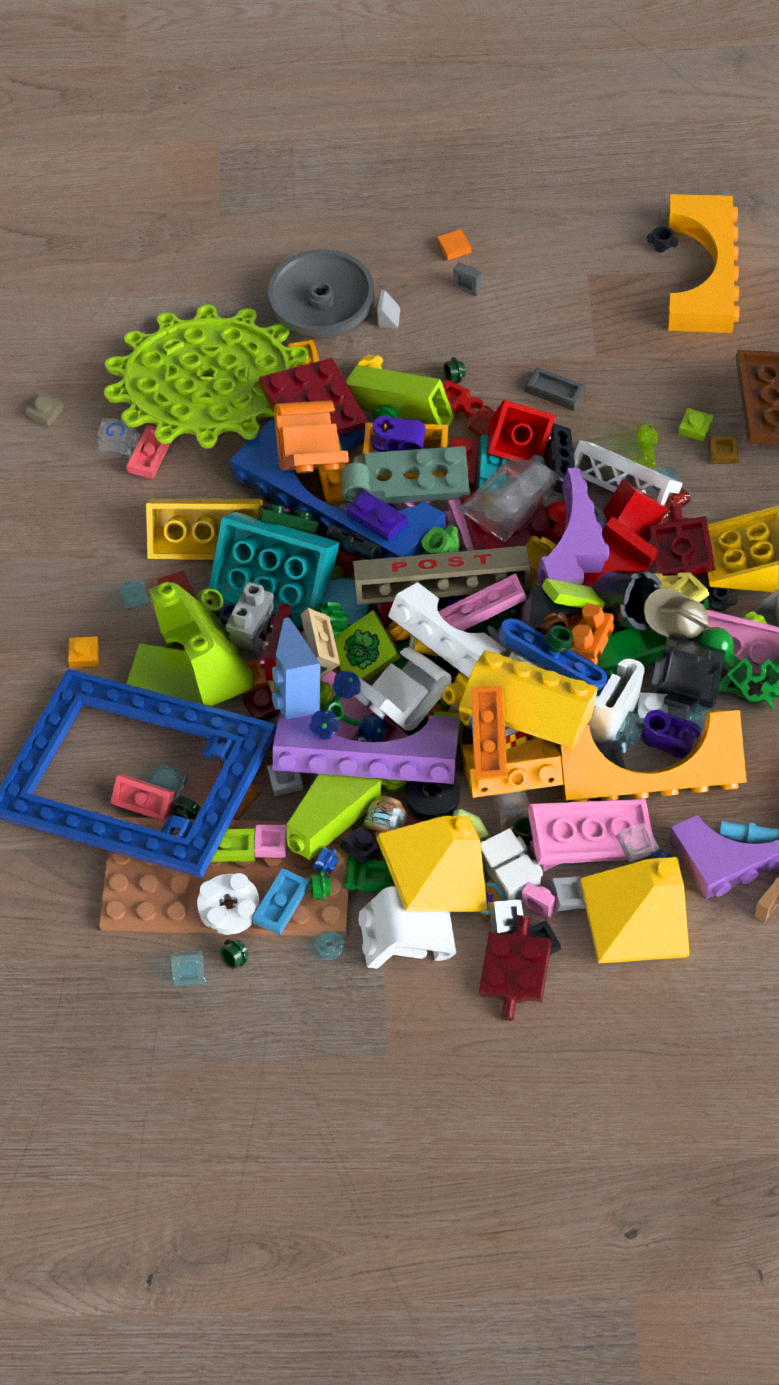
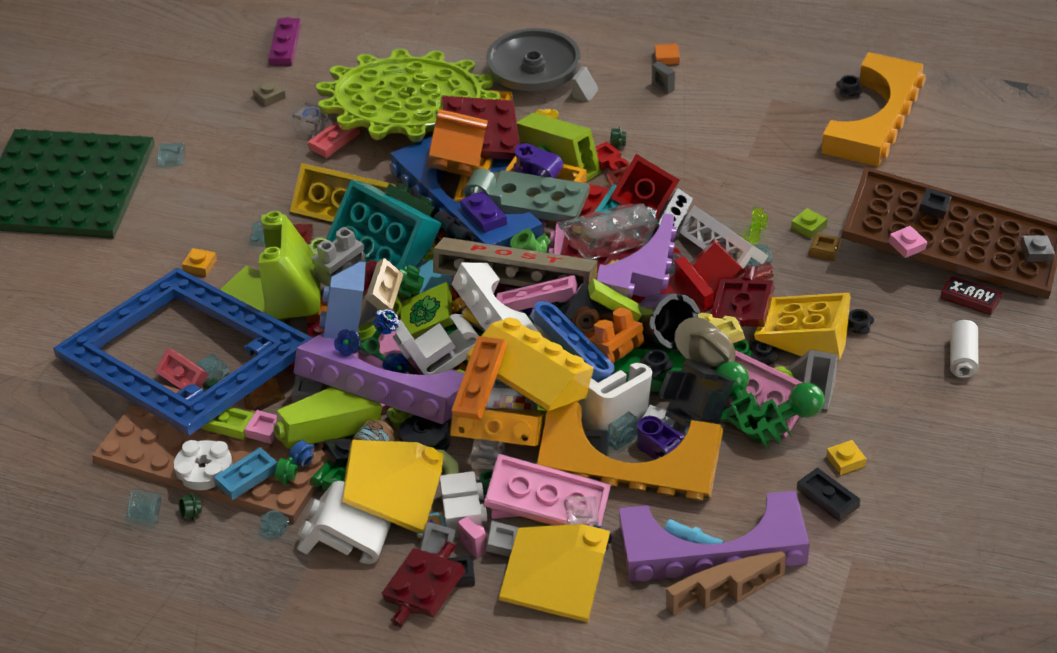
camera: 20 degrees right, 15 degrees down
(26, 335) = (284, 41): none -> magenta plate
(555, 388) = (698, 171): dark grey tile -> none
(559, 639) = (581, 326): dark green plate -> none
(636, 642) = (657, 361): none -> black plate

